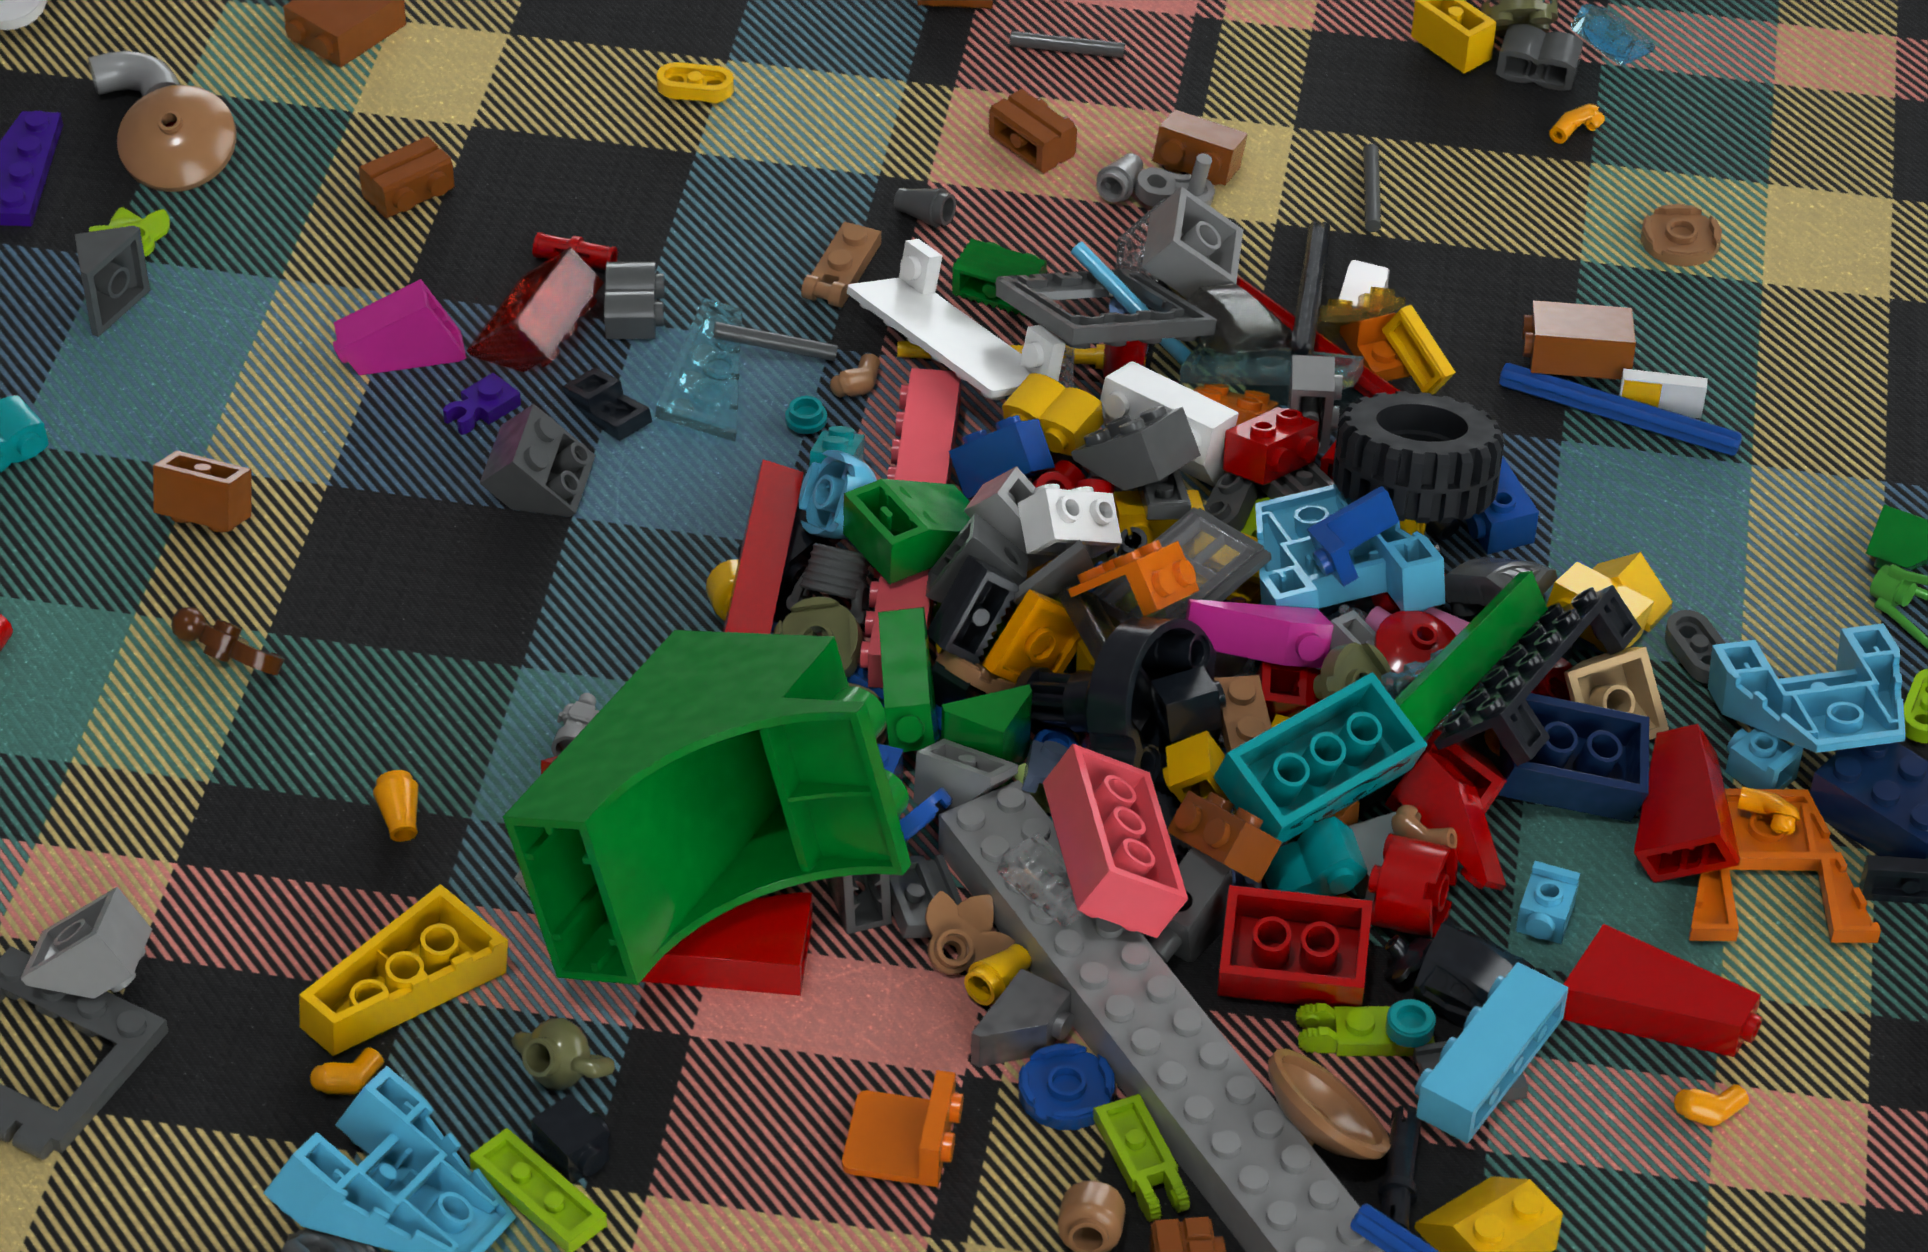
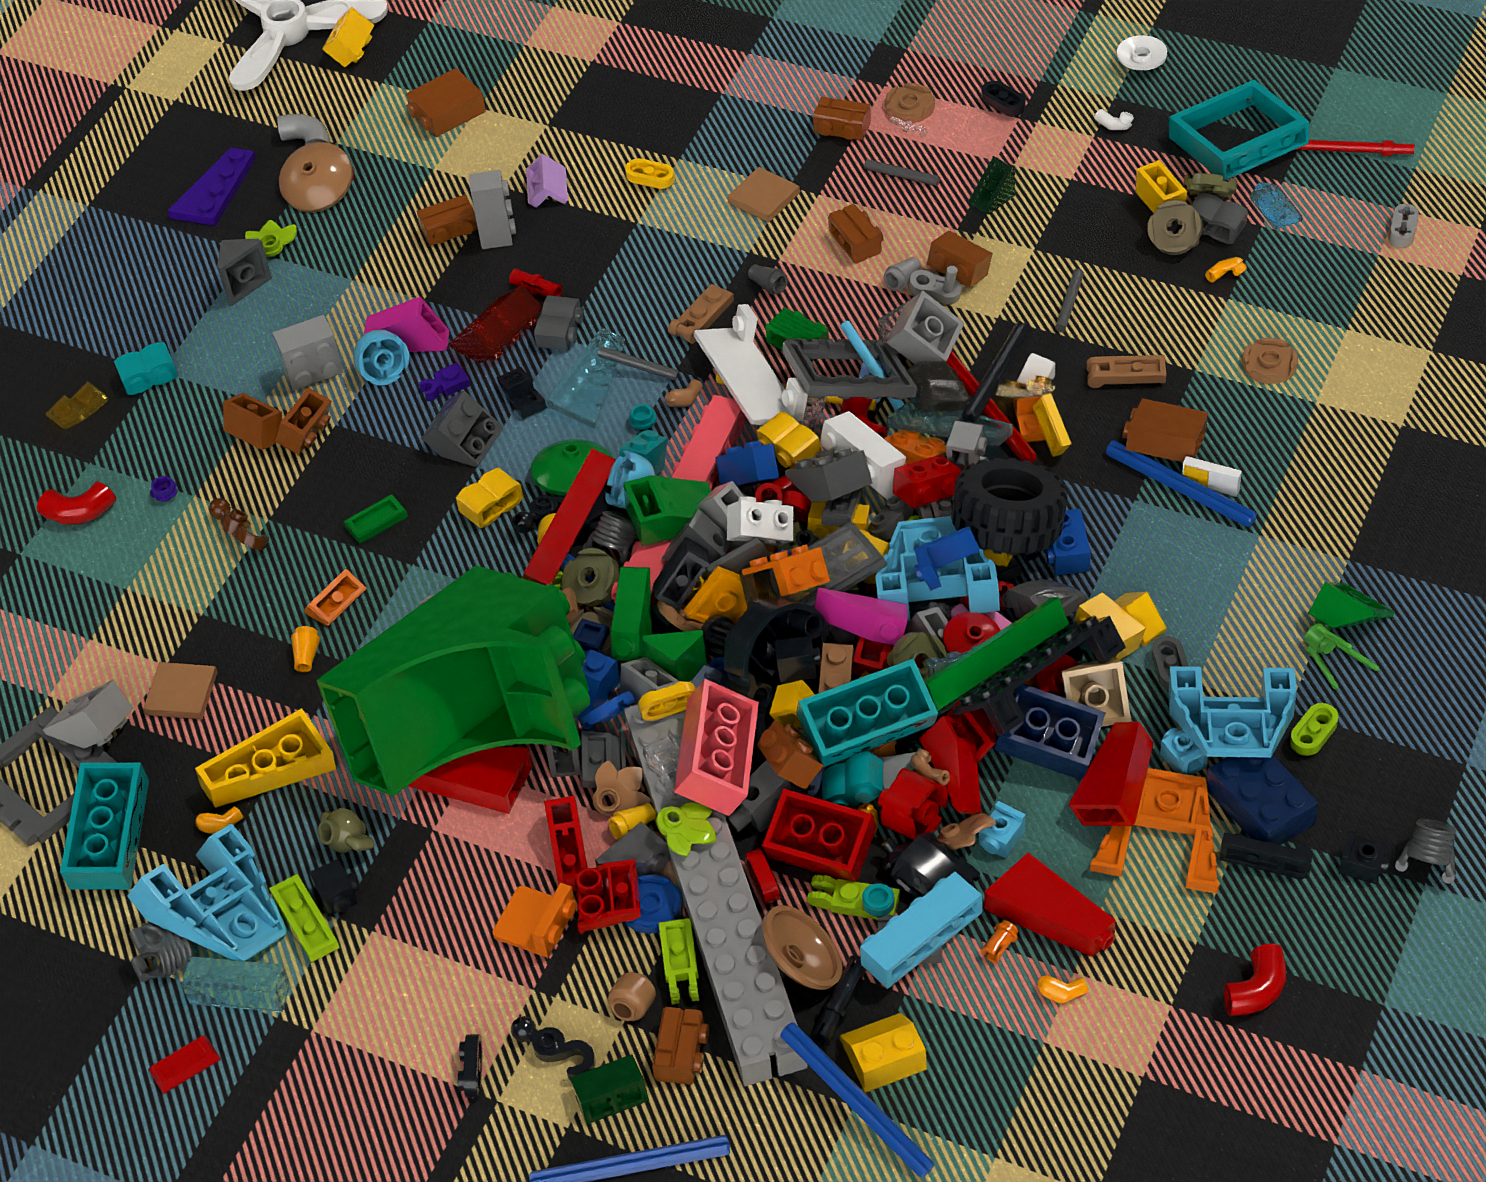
camera: 20 degrees right, 5 degrees up
(85, 608) = (163, 489): none -> dark purple plate
(173, 1105) = (105, 826): none -> teal brick
(215, 895) = (180, 690): none -> medium nougat tile
(259, 382) = (308, 352): none -> light grey brick
(285, 480) = (303, 421): none -> dark orange brick
(374, 376) = (380, 357): none -> medium azure cylinder
(418, 729) = (335, 598): none -> orange slope
(442, 608) = (375, 519): none -> green tile
(483, 149) = (492, 209): none -> light grey wedge
(537, 108) = (546, 179): none -> lavender panel
(613, 554) = (489, 497): none -> yellow brick
(704, 556) = (539, 507): none -> black piece
(712, 496) = (559, 464): none -> green dish
(874, 94) = (763, 194): none -> medium nougat tile
(912, 1015) = (566, 838): none -> red slope
(1005, 1081) = (607, 895): none -> red slope
(1010, 790) = (665, 701): none -> yellow plate
(1102, 961) = (689, 829): none -> lime plate
(1213, 46) = (994, 187): none -> clear green slope
(1227, 1017) = (762, 876): none -> red beam
(1488, 269) = (1126, 370): none -> medium nougat plate
(1500, 910) = (962, 834): none -> medium nougat plate
(1502, 54) = (1186, 237): none -> dark tan plate
(1603, 1044) = (1002, 937): none -> orange pin
(1767, 803) = (1172, 785): light orange arm -> none
(1802, 41) = (1407, 226): none -> light grey beam

